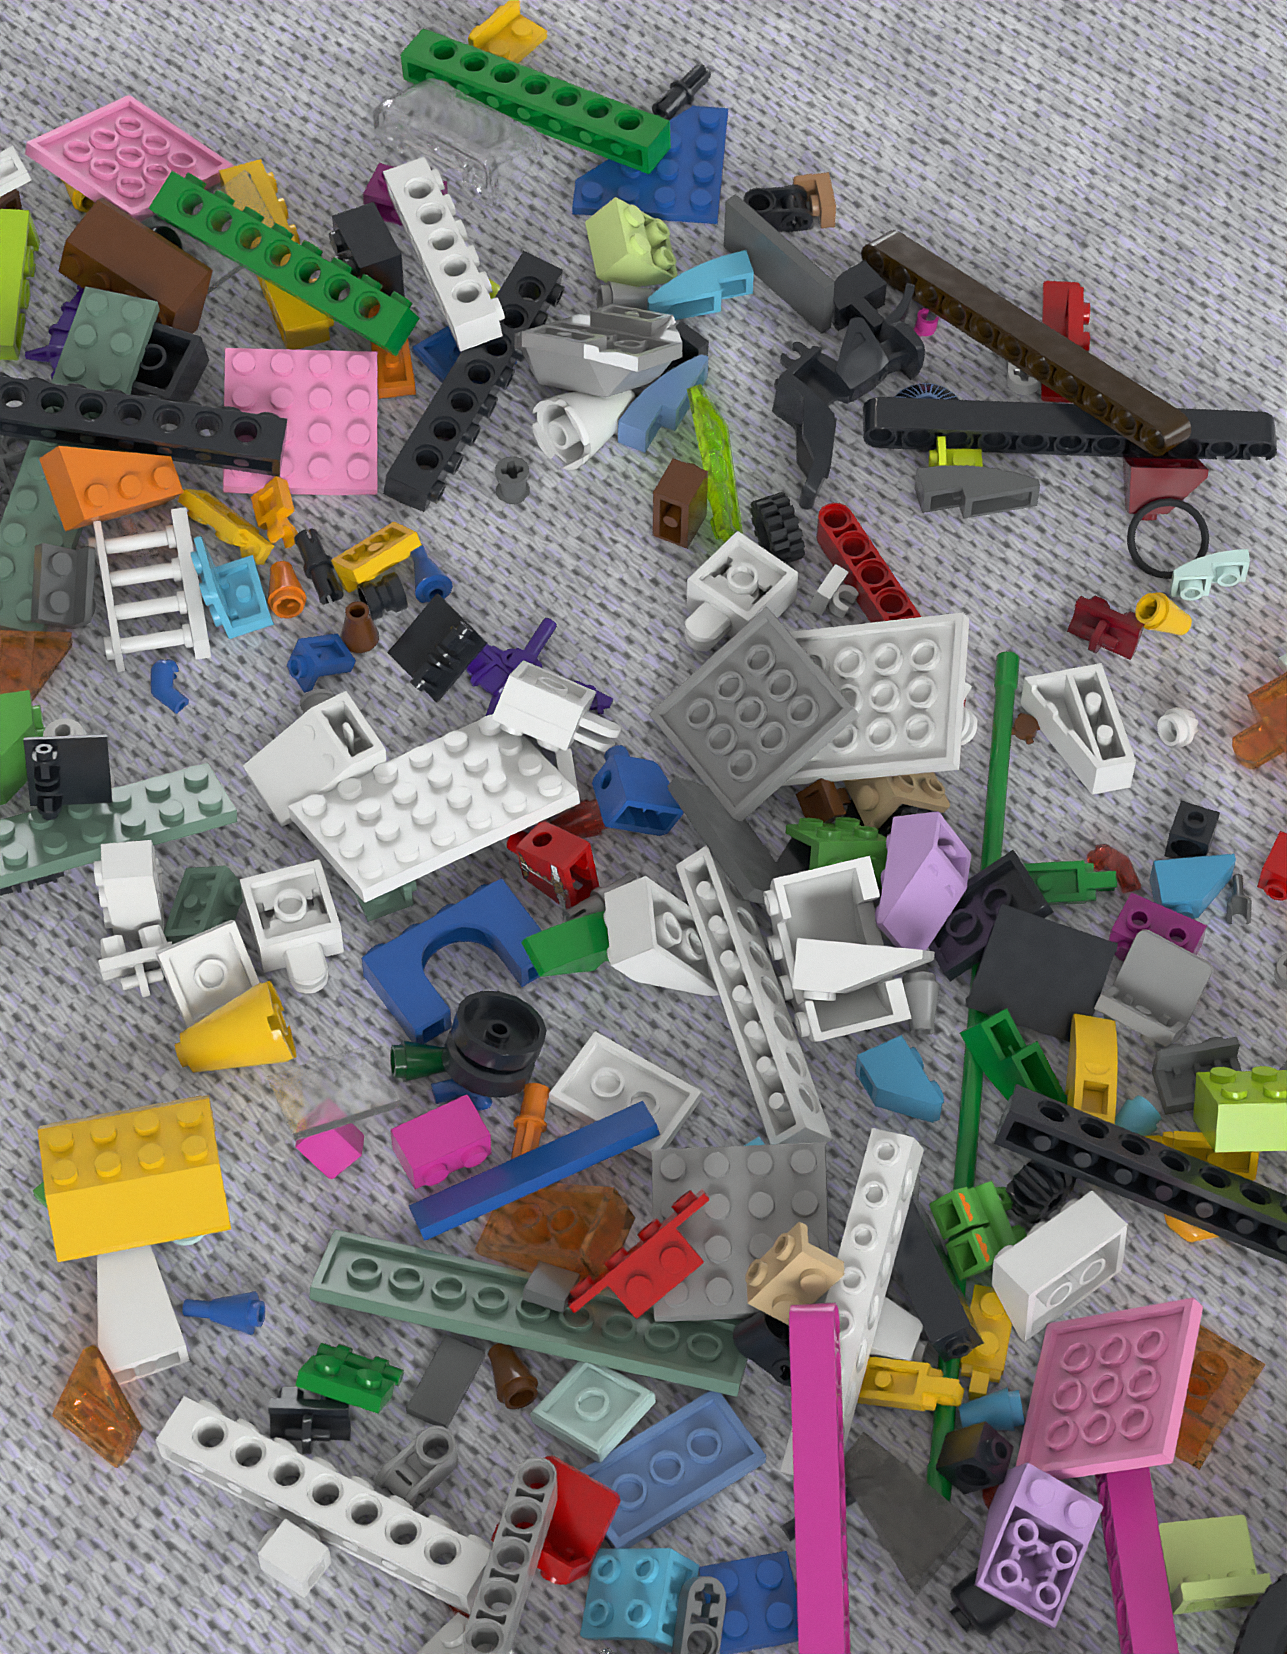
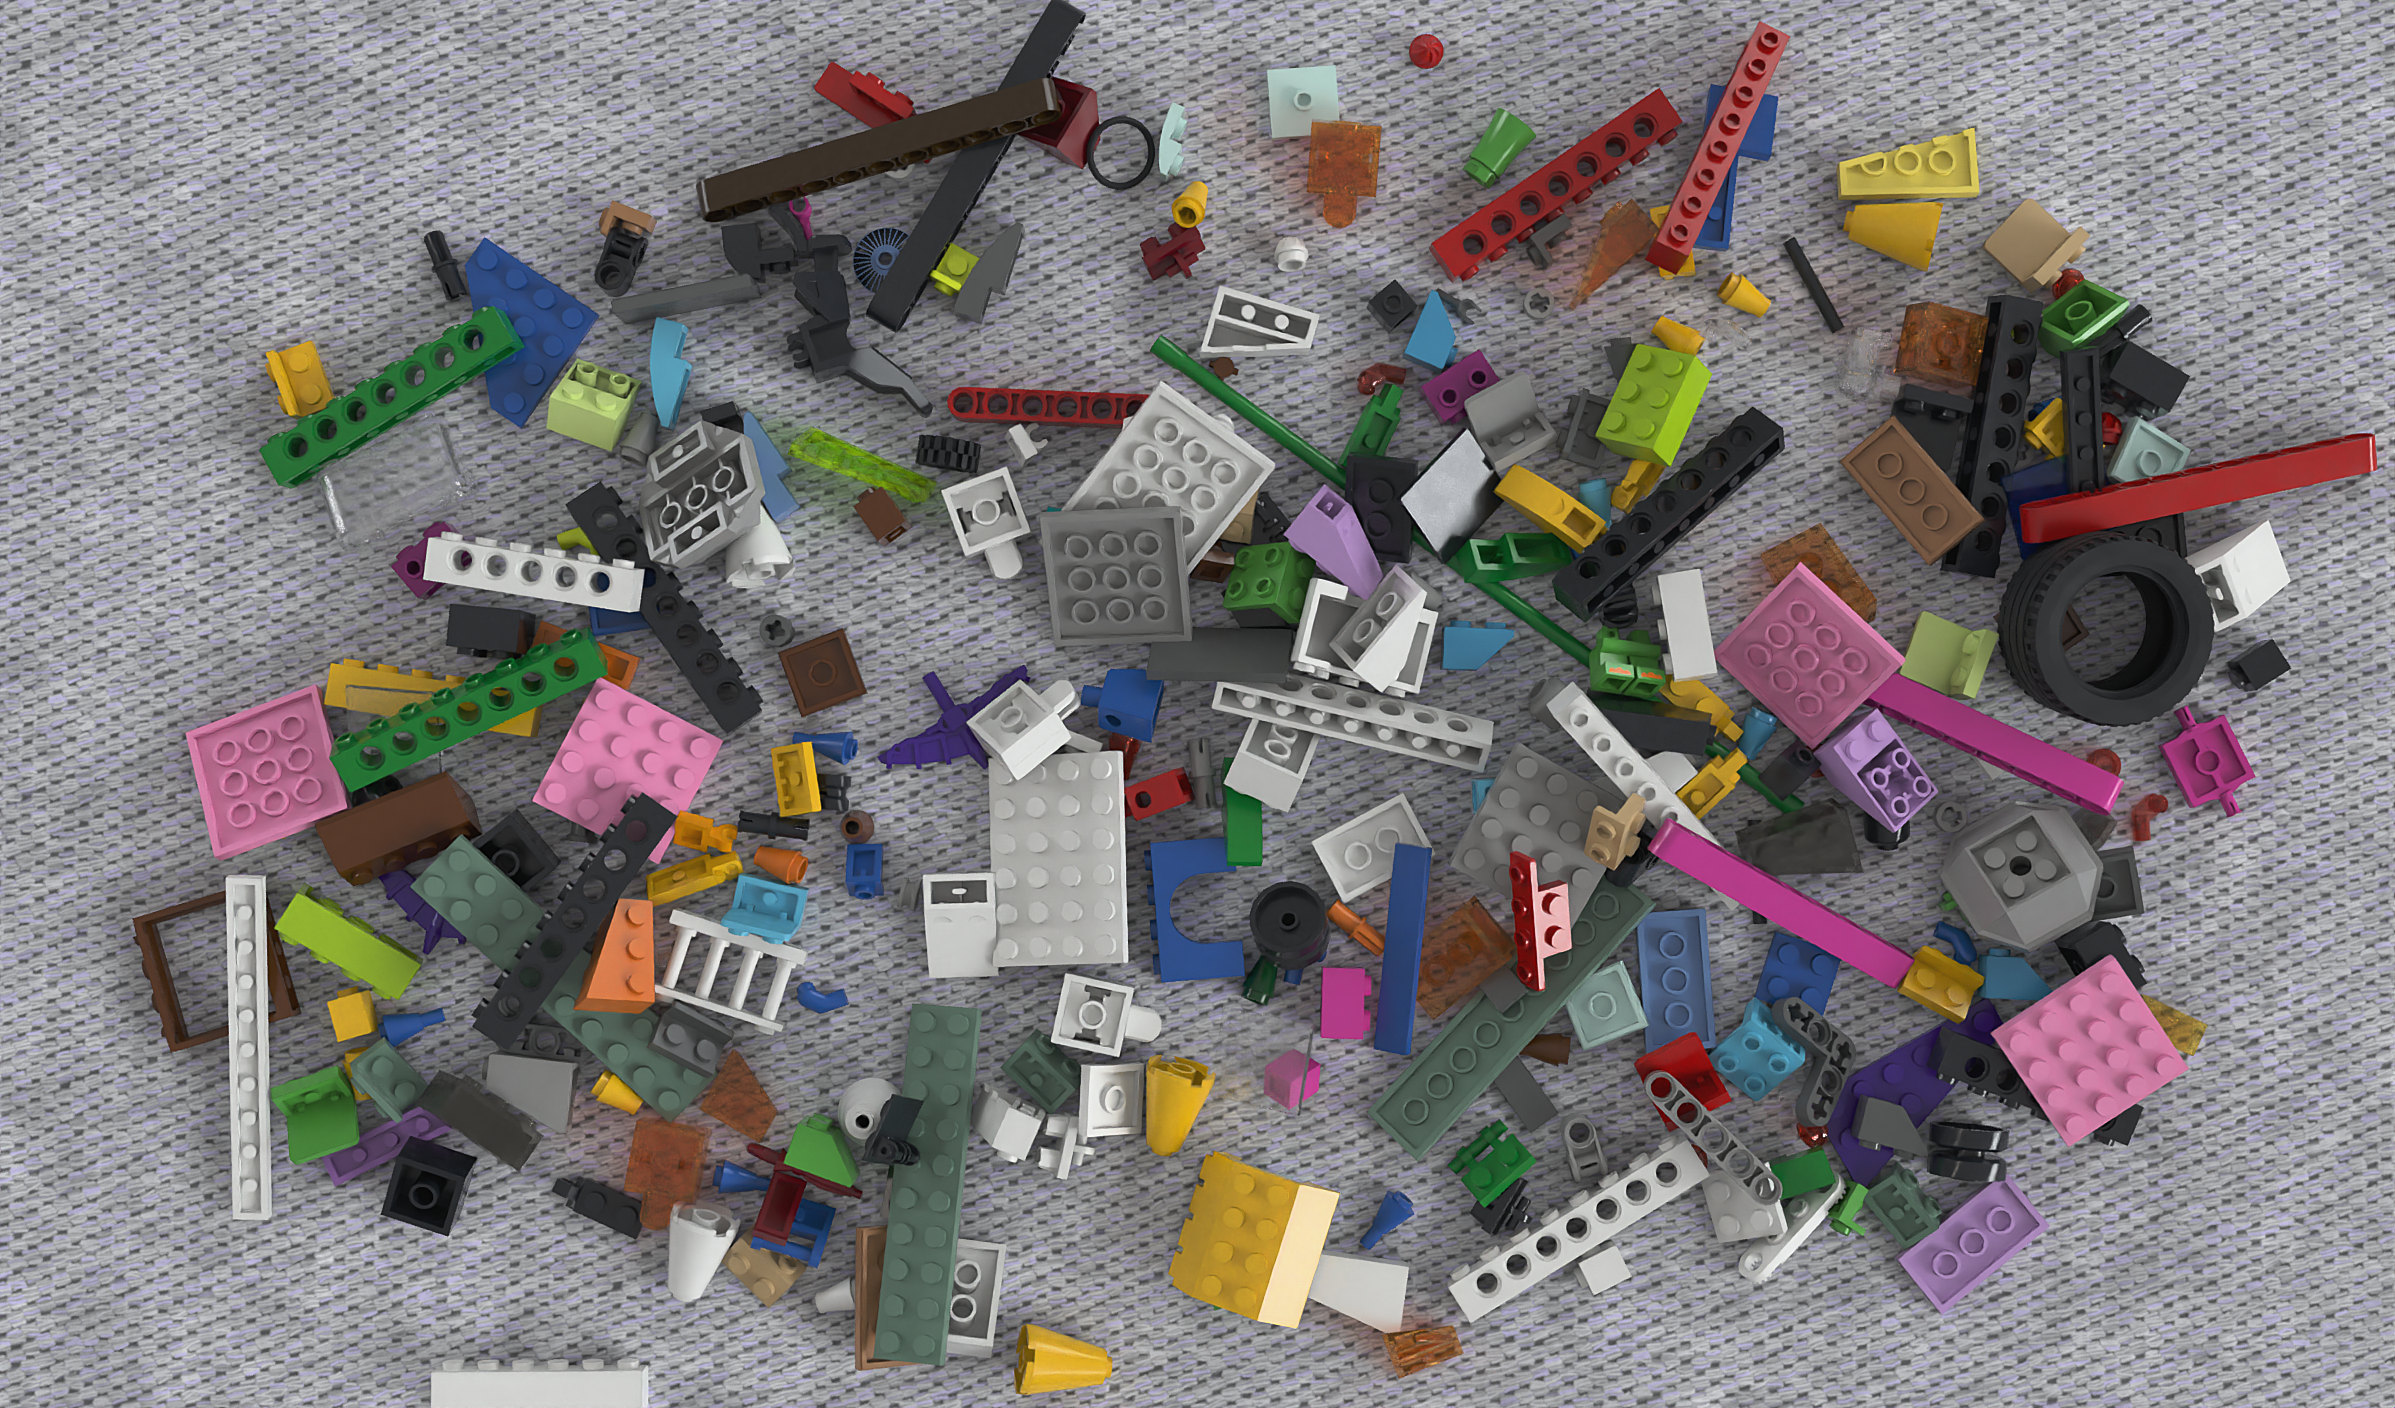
camera: 60 degrees left, 30 degrees up
(437, 648) = (908, 777): black hinge -> none
(495, 538) = (822, 672): none -> reddish brown plate

